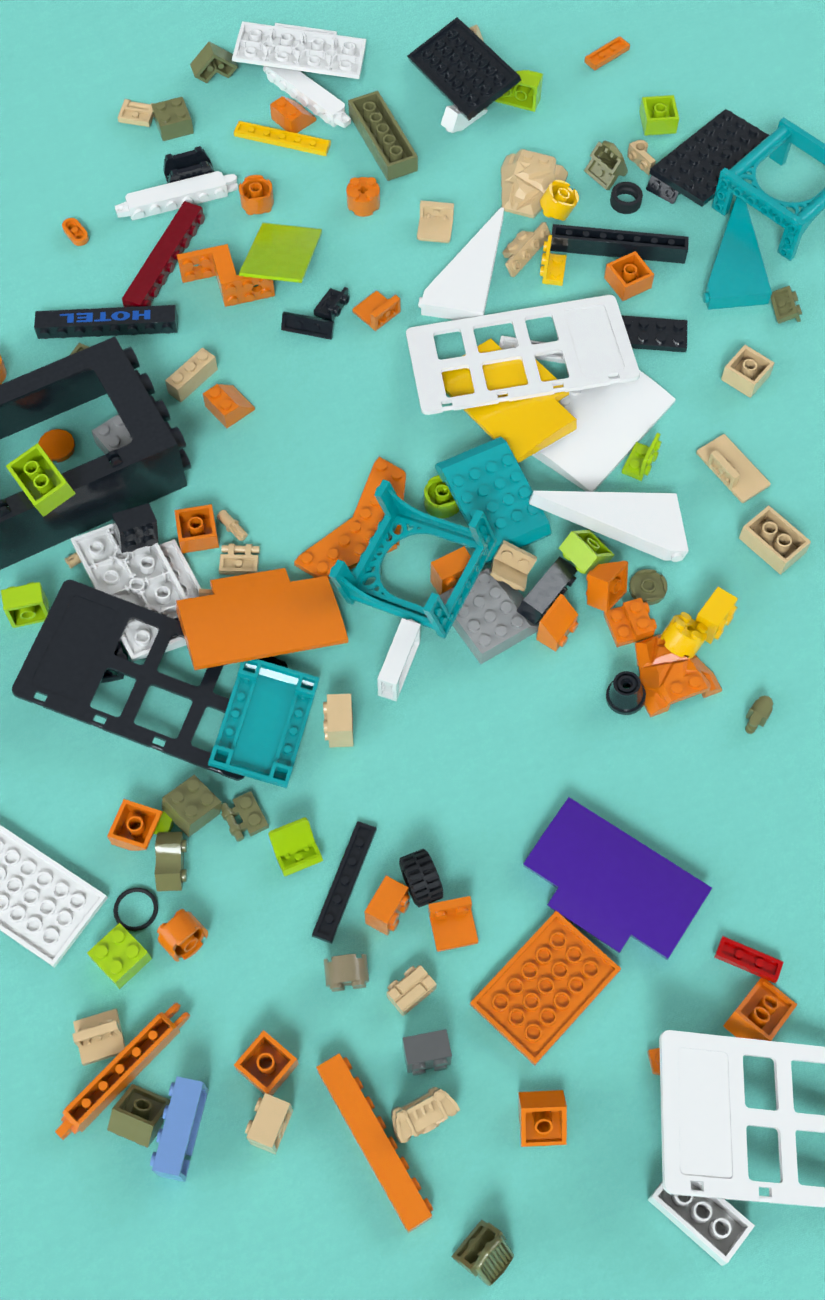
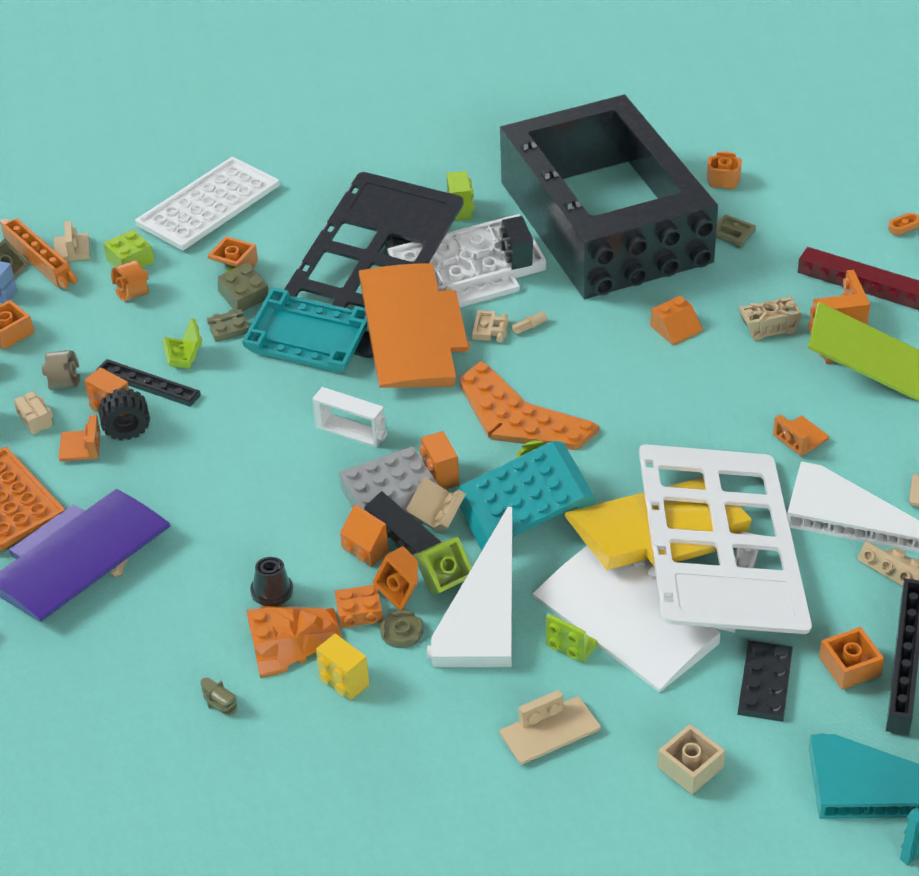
camera: 100 degrees right, 20 degrees down
(40, 479) = (543, 153): lime brick -> none
(106, 322) = (782, 244): black brick -> none
(155, 911) = (168, 256): black tyre -> none
(170, 861) = (198, 278): olive brick -> none
(191, 374) = (712, 296): tan brick -> none
(196, 528) = (524, 294): orange brick -> none
(213, 331) = (771, 317): none -> tan piece
(307, 325) = (781, 372): black plate -> none
(332, 304) = (806, 398): black bracket -> none
(338, 720) = (295, 375): tan brick -> none
(397, 512) = (436, 396): teal arch -> none
(553, 265) = (872, 585): yellow bracket -> none
(684, 635) = (316, 619): yellow brick -> none
(774, 539) = (434, 744): tan brick -> none
(785, 305) = (809, 831): olive bracket -> none

